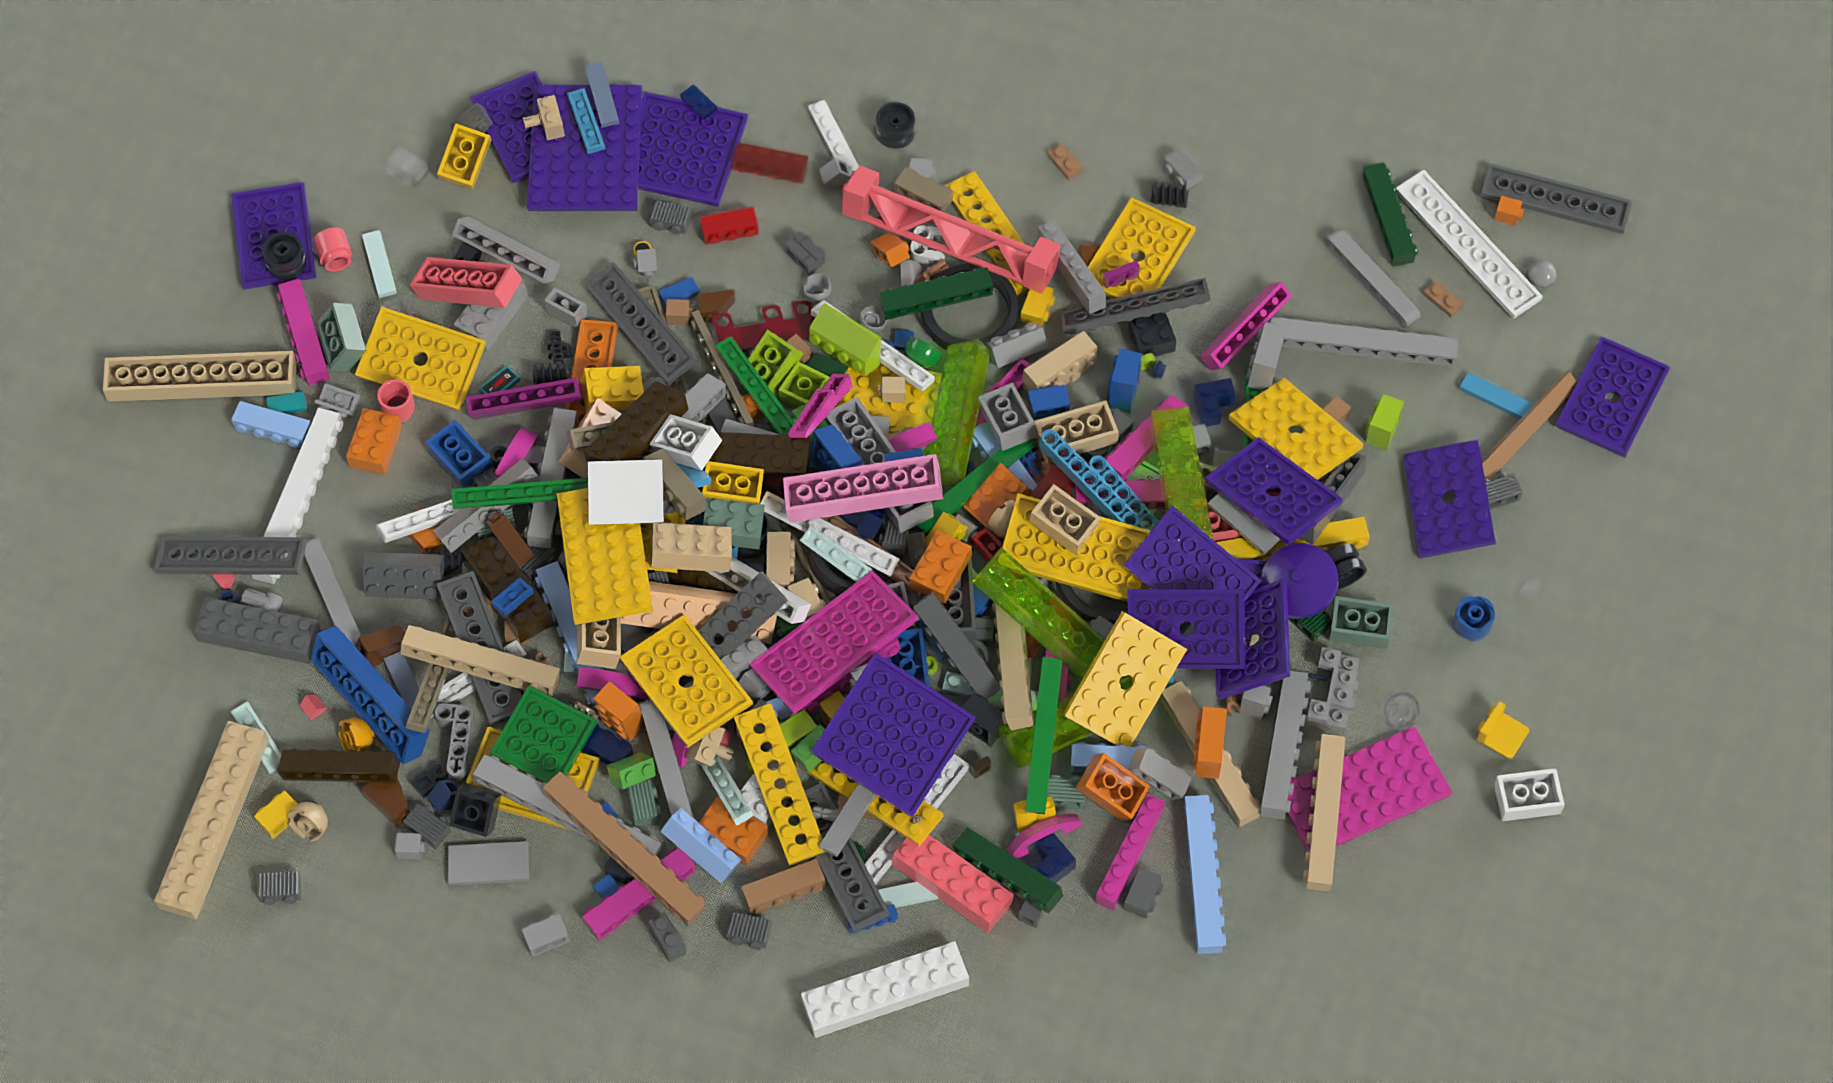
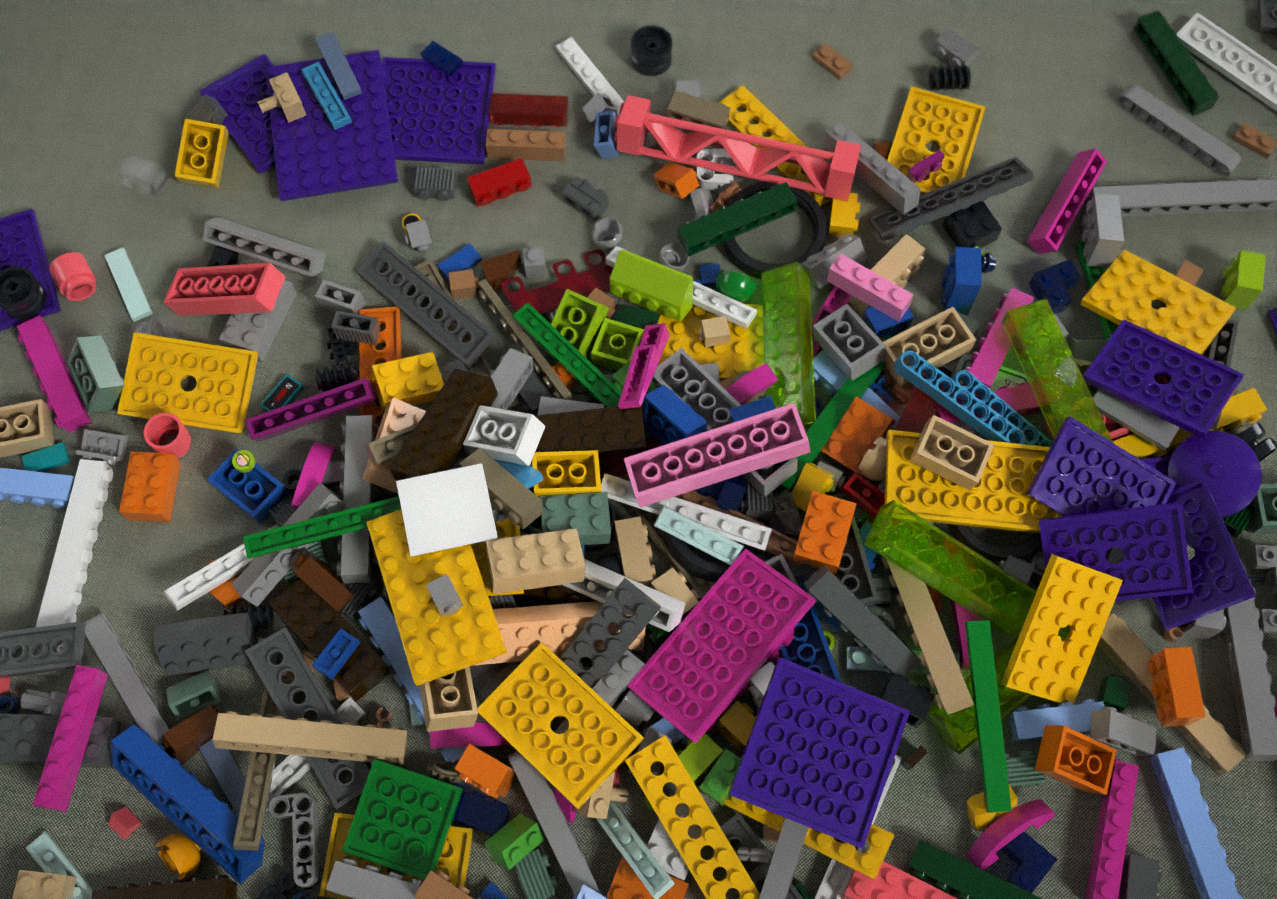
camera: 10 degrees left, 5 degrees up
(284, 627) = (70, 739): none -> dark pink brick
(386, 614) = (193, 694): none -> sand green brick
(459, 431) = (243, 461): none -> lime tile
(576, 334) = (356, 327): none -> dark grey brick
(611, 557) = (444, 595): none -> light grey brick
(746, 303) = (534, 262): none -> light grey brick
(760, 195) = (526, 145): none -> medium nougat brick
(833, 196) = (605, 135): none -> medium blue brick
(1035, 371) = (869, 287): none -> bright pink brick
(1166, 744) = (1114, 692): none -> dark green brick
(1187, 470) = (1067, 371): none -> clear tile

